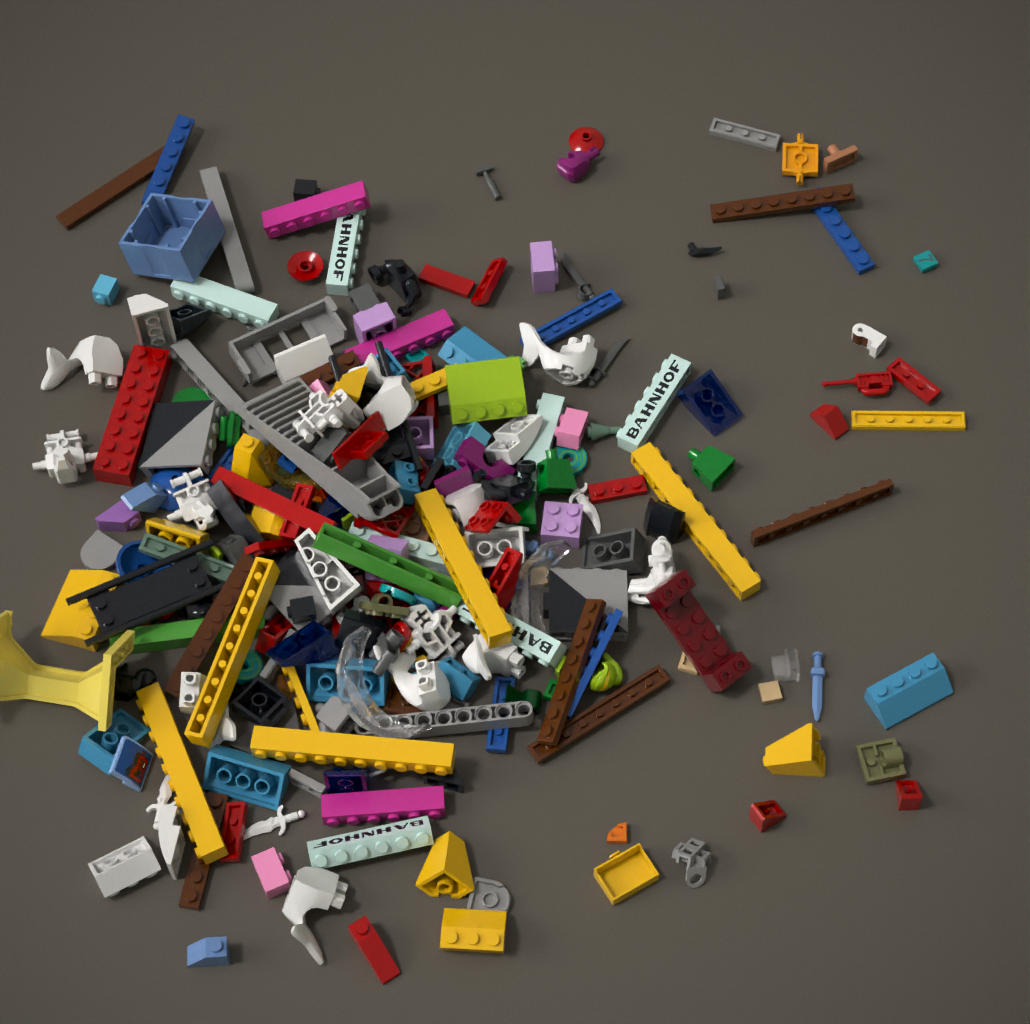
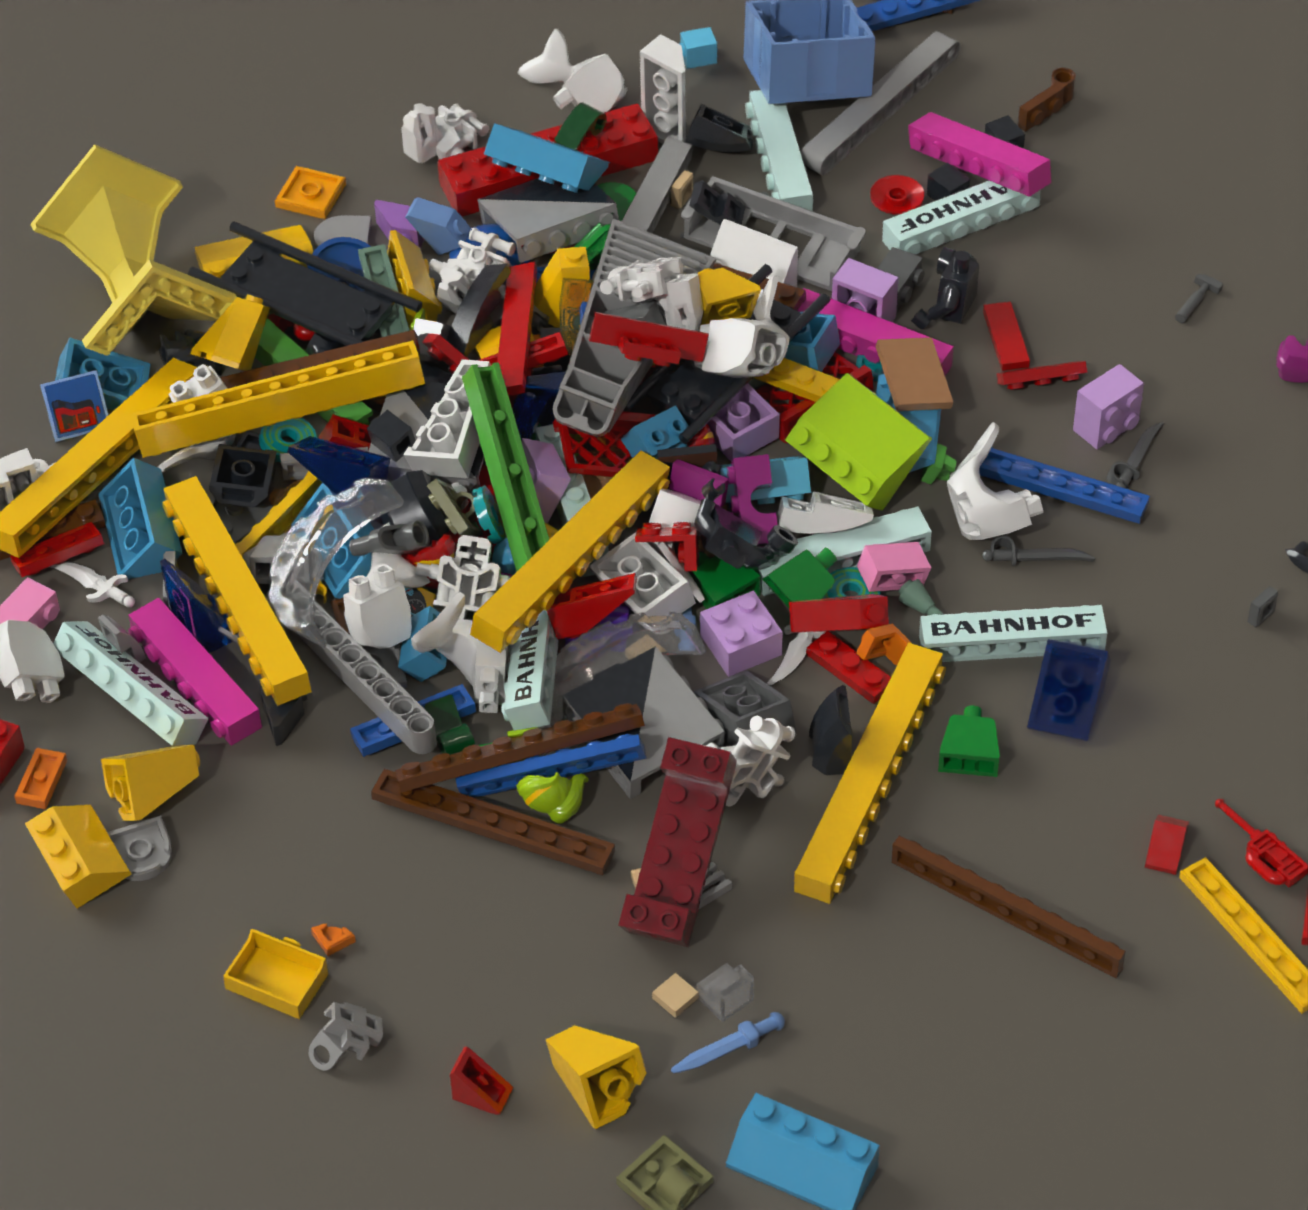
camera: 55 degrees right, 10 degrees down
(47, 550) = (310, 192): none -> light orange tile
(137, 383) = (578, 123): none -> dark green panel
(149, 413) = (544, 158): none -> dark azure slope
(156, 649) = (235, 334): none -> yellow slope
(213, 361) = (682, 189): none -> tan tile
(251, 353) = (716, 206): none -> black slope
(290, 144) = (1049, 100): none -> reddish brown plate
(320, 239) = (946, 182): none -> black brick
(337, 830) = (120, 638): none -> light grey slope
(401, 925) = (40, 778): none -> orange plate
(458, 337) = (914, 374): none -> medium nougat tile
(588, 470) = (839, 613): none -> red slope
(620, 461) = (883, 641): none -> orange bracket

